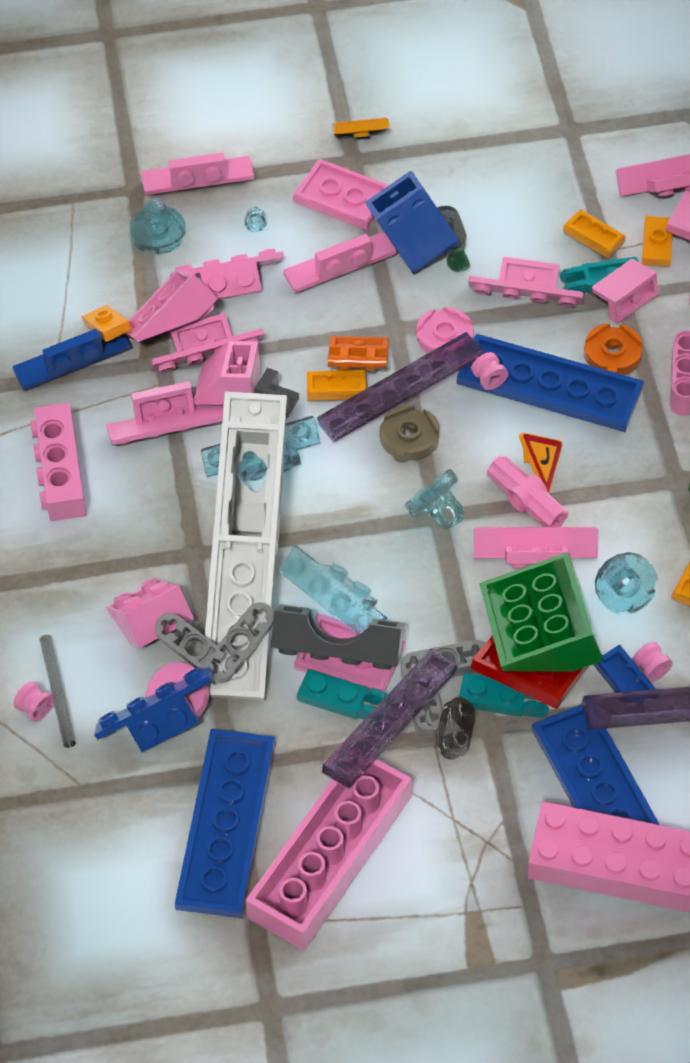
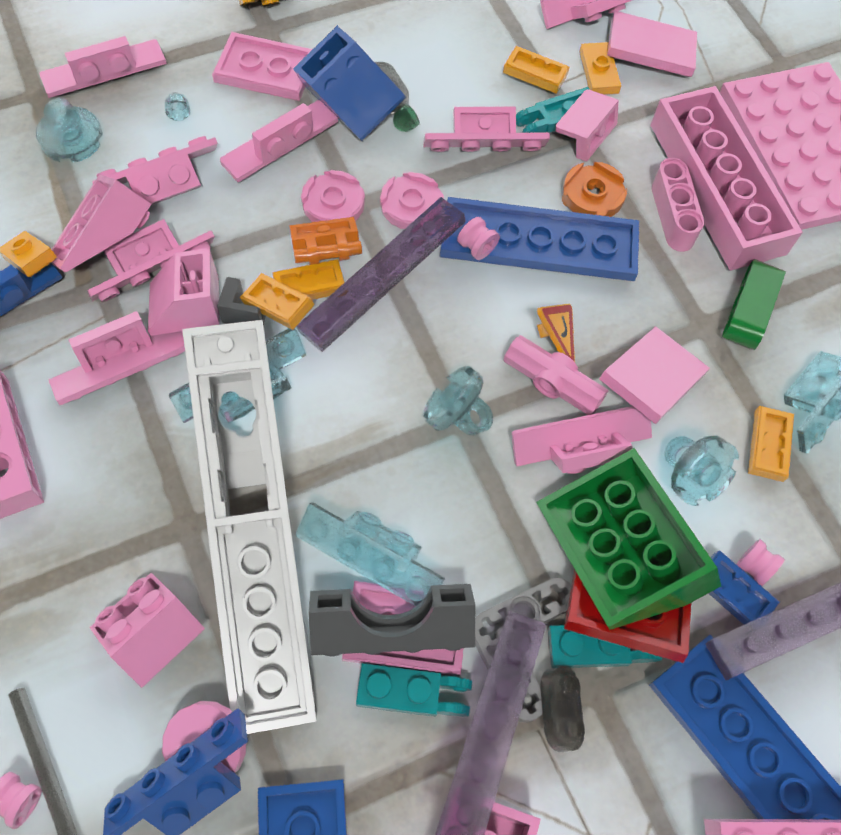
camera: 20 degrees left, 10 degrees up
(212, 652) = (237, 680): light grey beam -> none
(305, 393) = (277, 301): none -> light orange plate
(375, 318) = (332, 197): none -> bright pink tile
(409, 447) = (403, 343): dark tan plate -> none
(612, 505) = (654, 374): none -> bright pink tile

